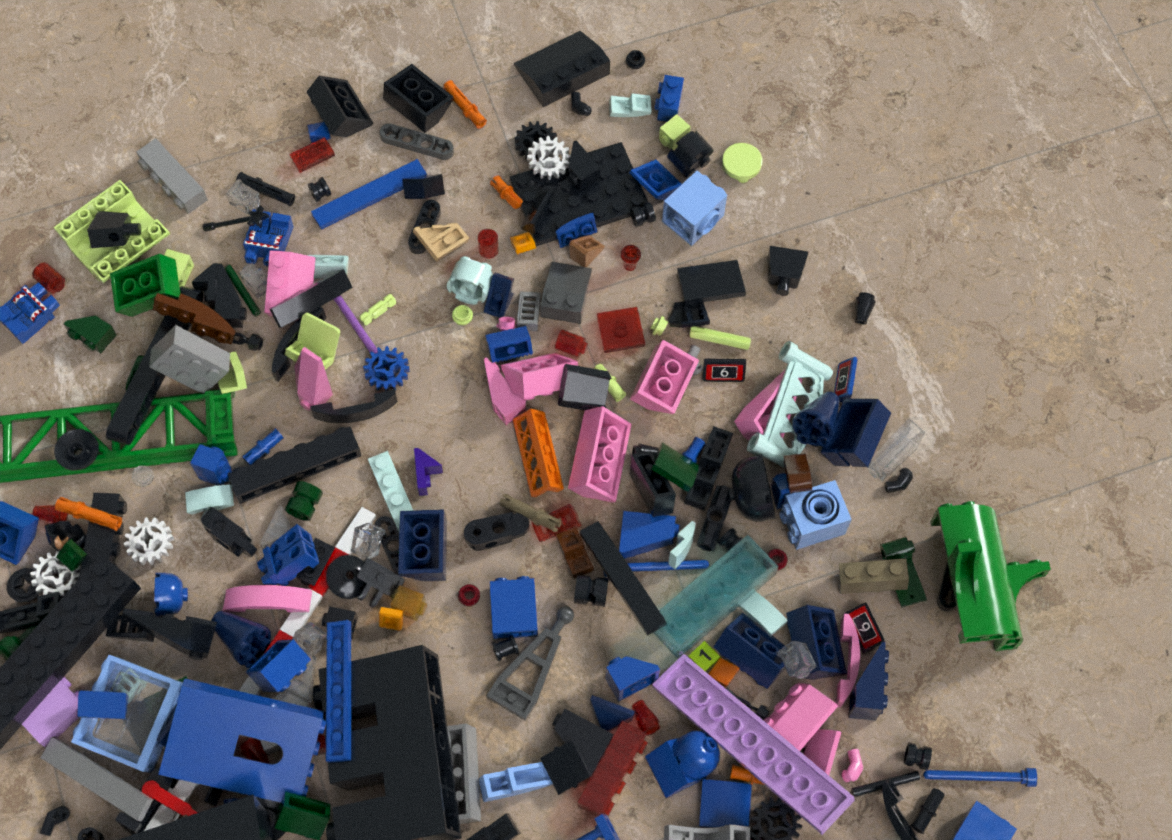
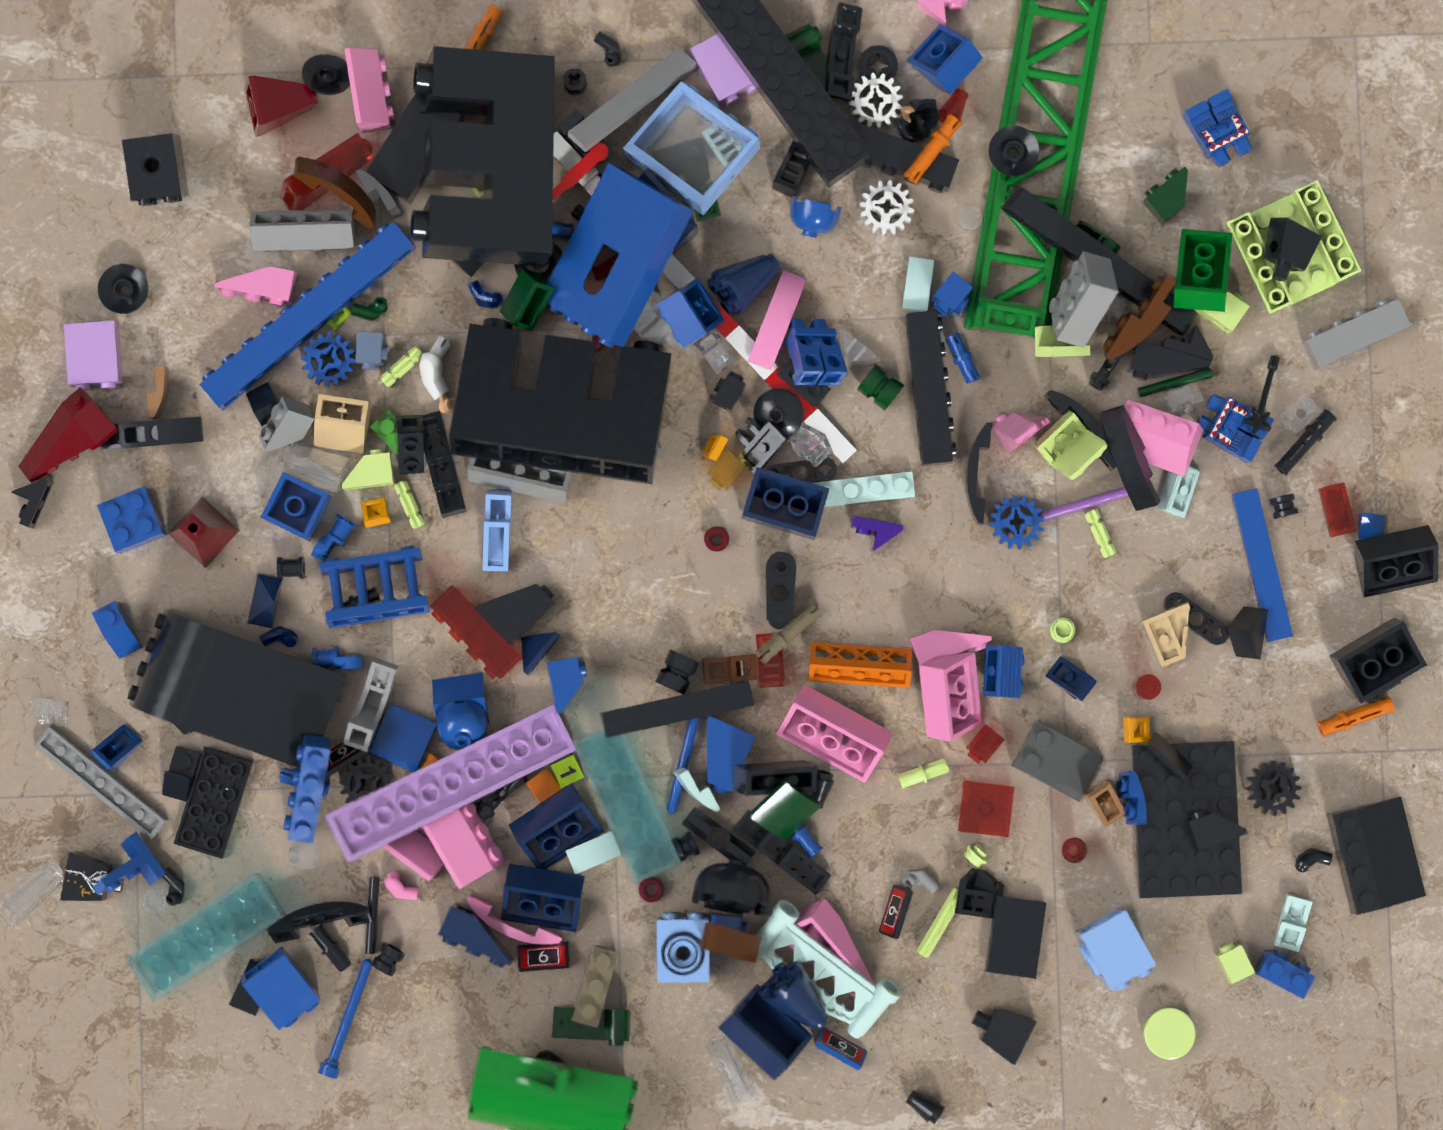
camera: 110 degrees right, 20 degrees up
(48, 277) = (1256, 162): clear red brick -> none
(71, 555) = (888, 121): dark green plate -> none
(102, 704) = (705, 121): blue slope -> none
(187, 636) = (759, 226): black wedge -> none
(227, 533) = (869, 294): black piece -> none
(338, 691) = (638, 367): blue tile -> none
(415, 144) = (1318, 641): dark grey beam -> none
(470, 280) = (1099, 650): light aqua brick -> none
(505, 648) = (643, 560): black bush -> none
(506, 192) = (1212, 730): orange axle -> none
(506, 323) = (1032, 677): bright pink plate -> none
(513, 608) = (685, 582): blue brick -> none
(513, 698) = (585, 553): dark grey plate -> none
(532, 325) = (1025, 702): light grey slope -> none
(552, 163) = (1227, 800): white gear -> none
(566, 767) = (492, 584): black piece -> none
(583, 387) = (917, 739): slope -> none
(635, 55) = (1364, 957): black plate -> none
(643, 214) = (1130, 879): black wheel -> none
(645, 718) = (519, 685): clear red cone -> none
(656, 179) = (1174, 918): blue slope -> none
(664, 378) = (903, 837): bright pink slope -> none
(690, 153) = (1194, 971): black brick -> none
(797, 659) = (524, 866): clear brick -> none
(902, 482) = (696, 1066): black arm -> none

